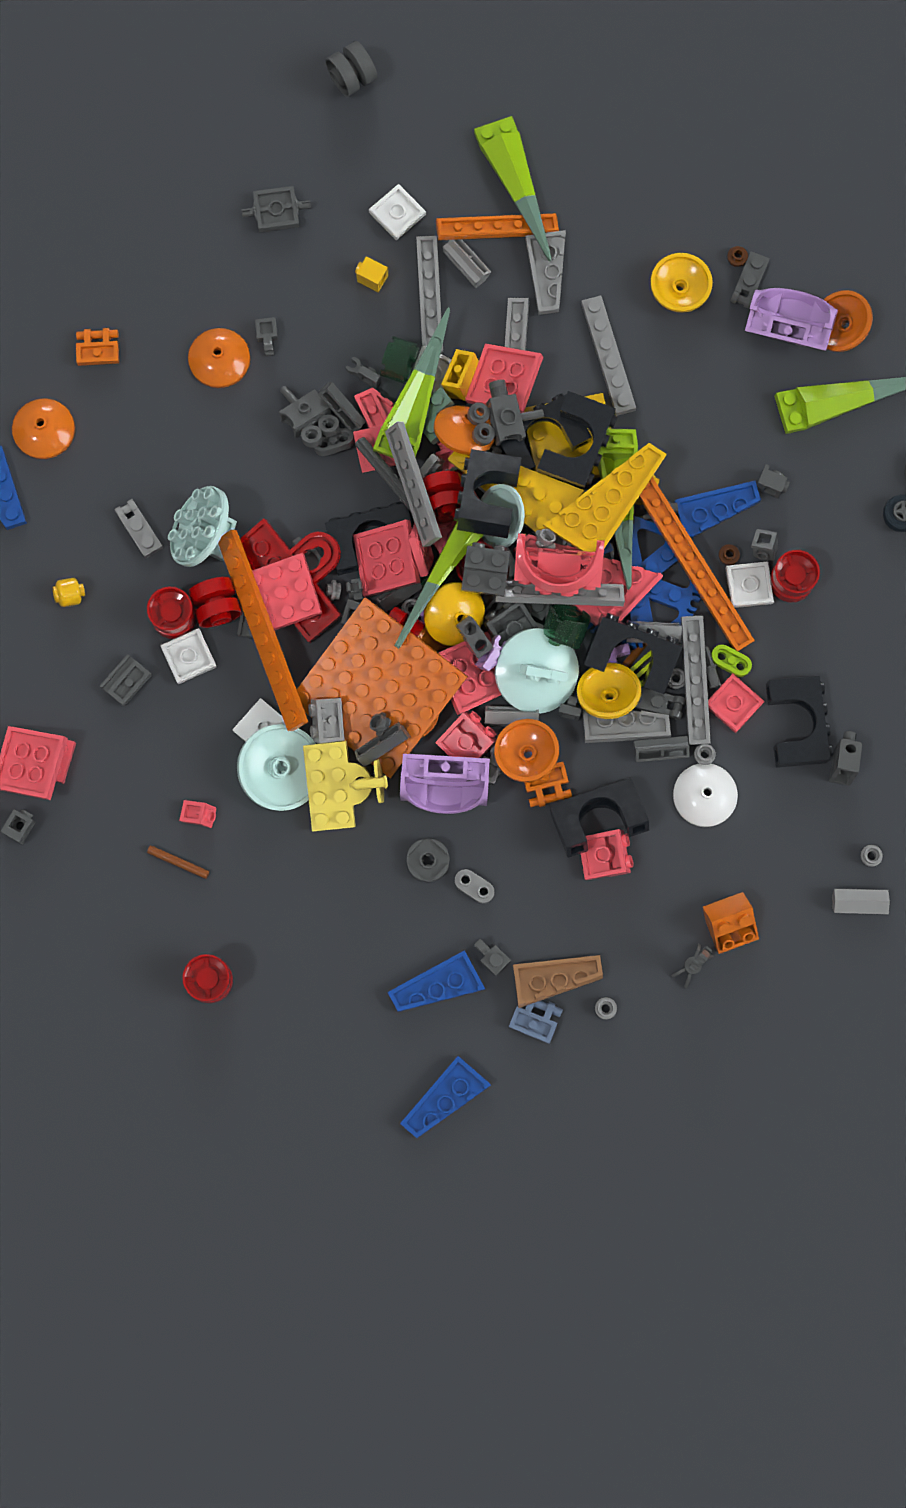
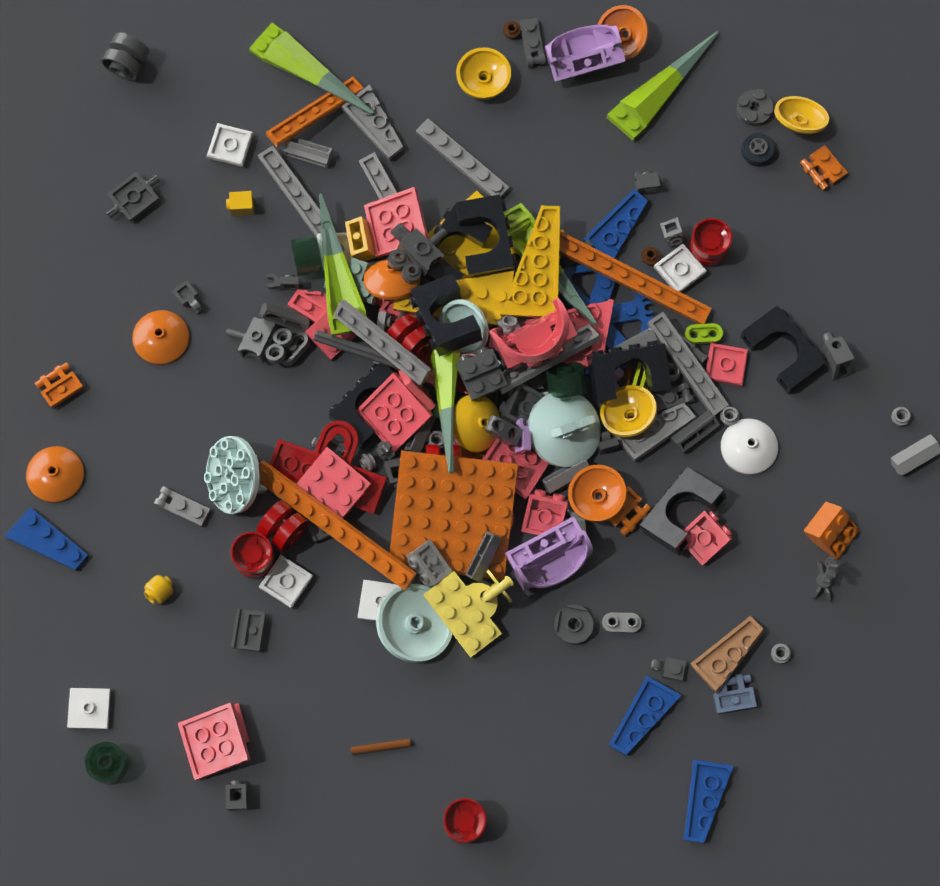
camera: 30 degrees left, 5 degrees down
(198, 813) = (372, 699): coral bracket -> none
(380, 723) = (472, 541): dark grey plate -> none

